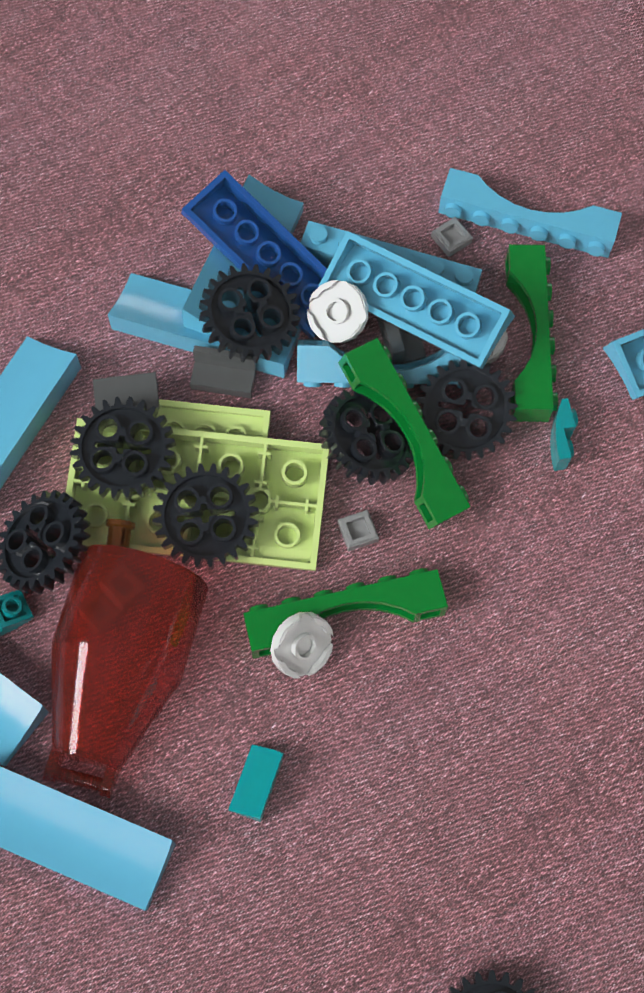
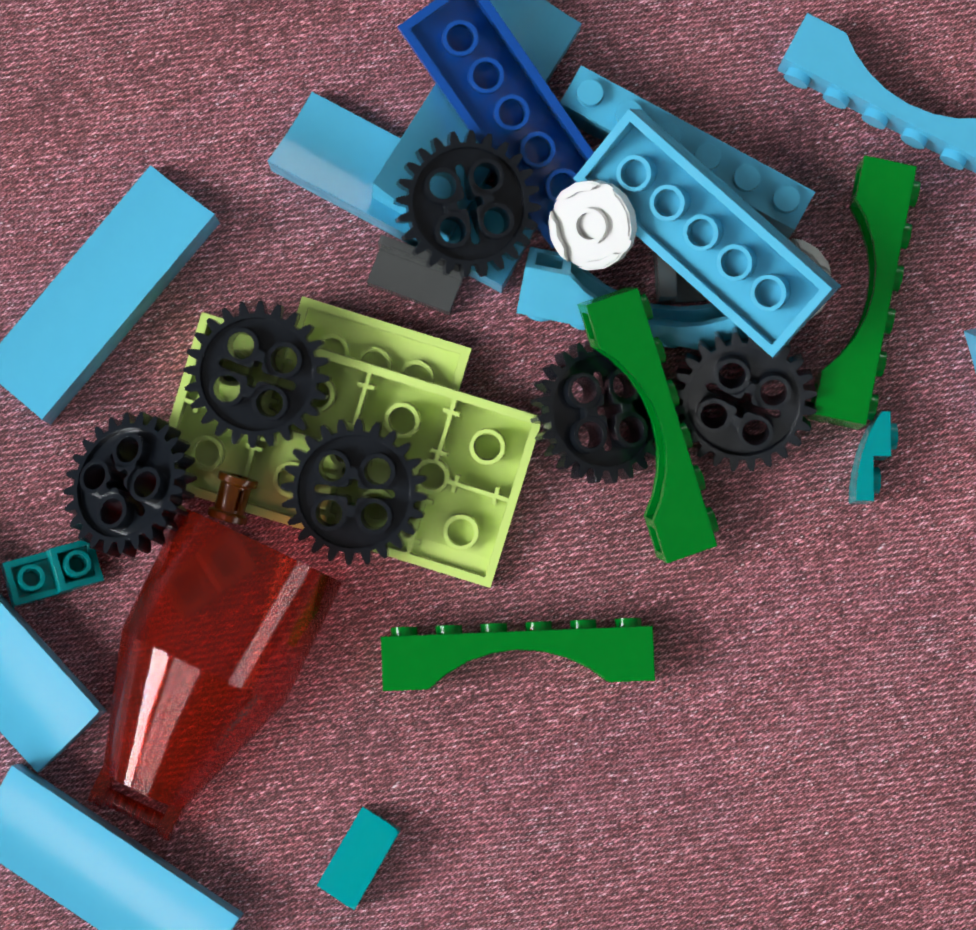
camera: 10 degrees right, 15 degrees up
(137, 386) = (276, 282): dark grey panel -> none
(302, 644) = (451, 693): white tile -> none
(358, 530) = (559, 540): light grey tile -> none
(451, 237) = (787, 116): light grey tile -> none

